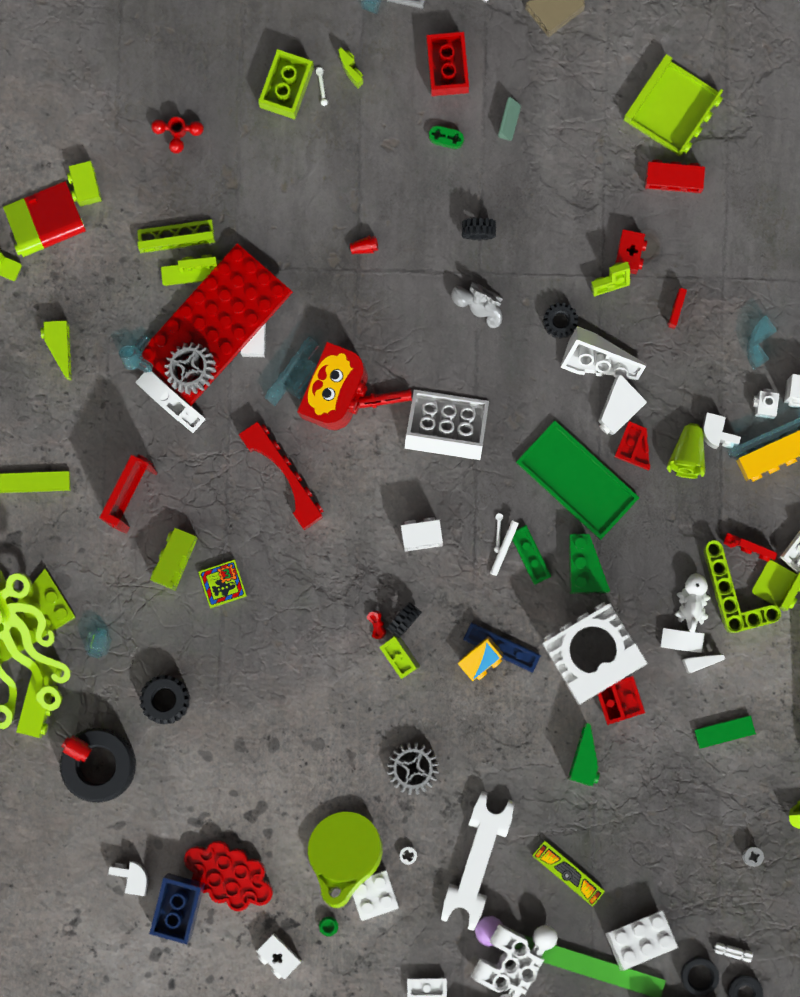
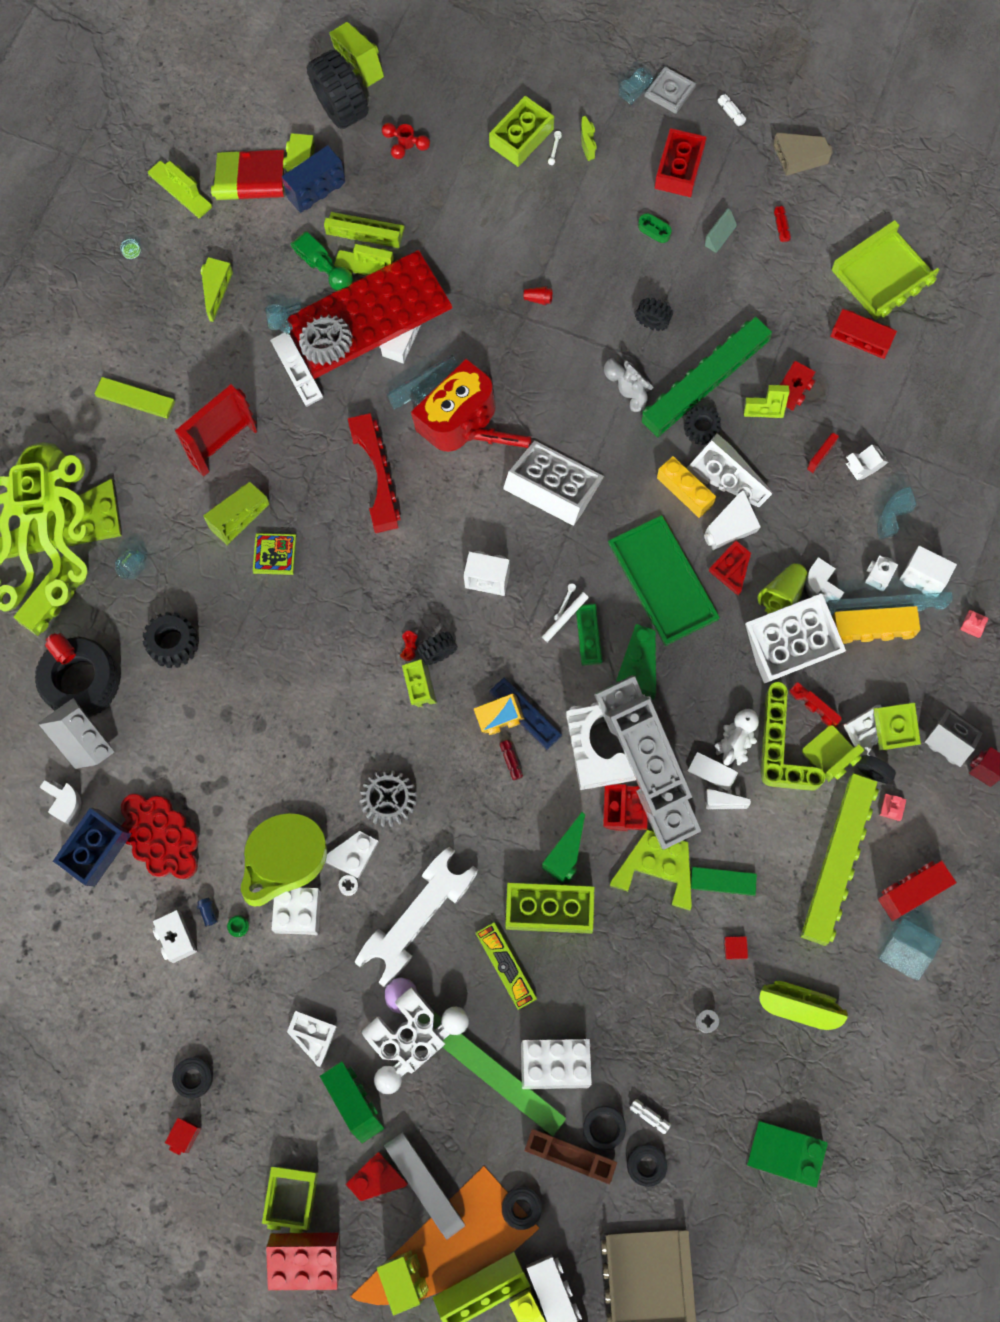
camera: 20 degrees right, 10 degrees down
(96, 55) = (358, 52): none -> lime wedge
(98, 109) = (337, 89): none -> black tyre
(110, 206) = (313, 179): none -> dark blue brick
(122, 818) = (76, 735): none -> light grey slope
(142, 281) = (316, 256): none -> green beam
(297, 924) = (207, 912): none -> dark blue pin
(401, 827) = (353, 854): none -> white wing
(505, 694) = (511, 760): none -> dark red axle
(549, 268) = (706, 376): none -> green brick
(562, 90) = (782, 224): none -> red axle
(567, 386) = (686, 487): none -> yellow brick
(588, 812) = (550, 908): none -> lime brick
(629, 658) = (651, 758): none -> light grey bracket
(665, 731) = (667, 864): none -> lime wing
(712, 497) = (794, 638): none -> white slope
(719, 303) = (866, 462): none -> white brick
(755, 785) = (735, 948): none -> red tile

